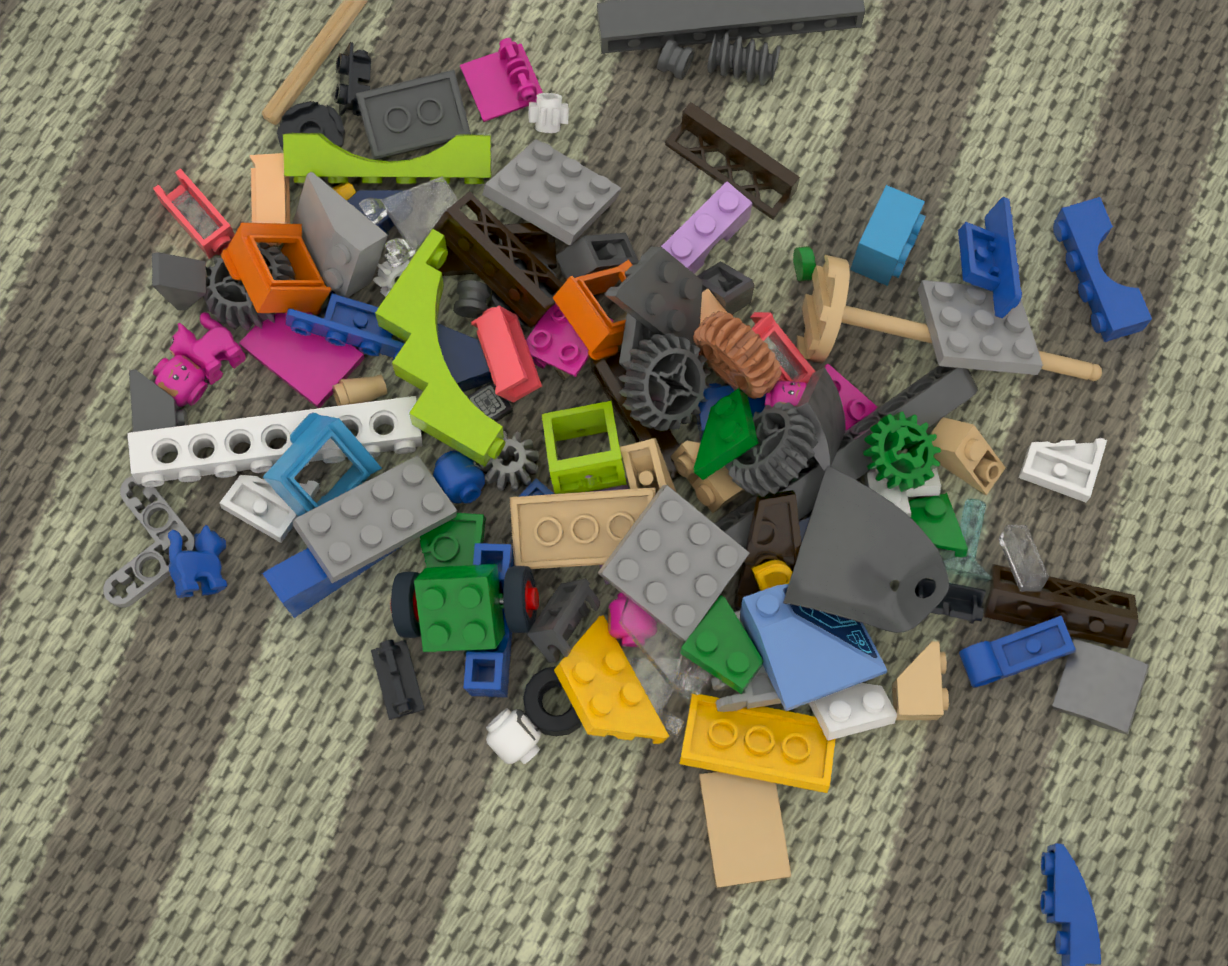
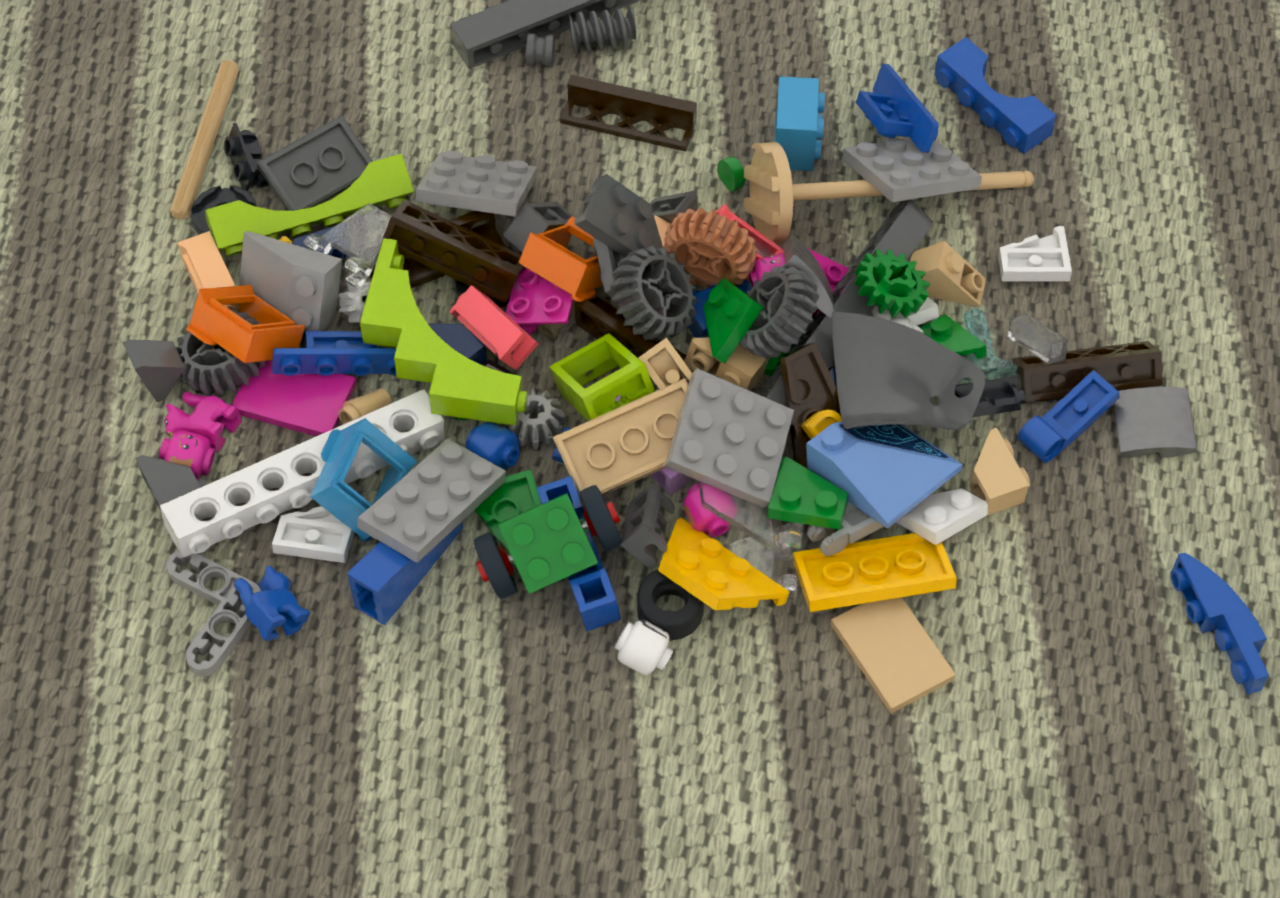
camera: 20 degrees left, 15 degrees down
(197, 216) = (143, 311): coral window -> none
(397, 679) = (508, 640): black hinge -> none
(471, 298) = (439, 297): dark grey wheel -> none
(502, 80) = (387, 116): dark pink hinge -> none
(548, 112) = (443, 126): white gear -> none
(716, 219) = (638, 158): lavender arch -> none

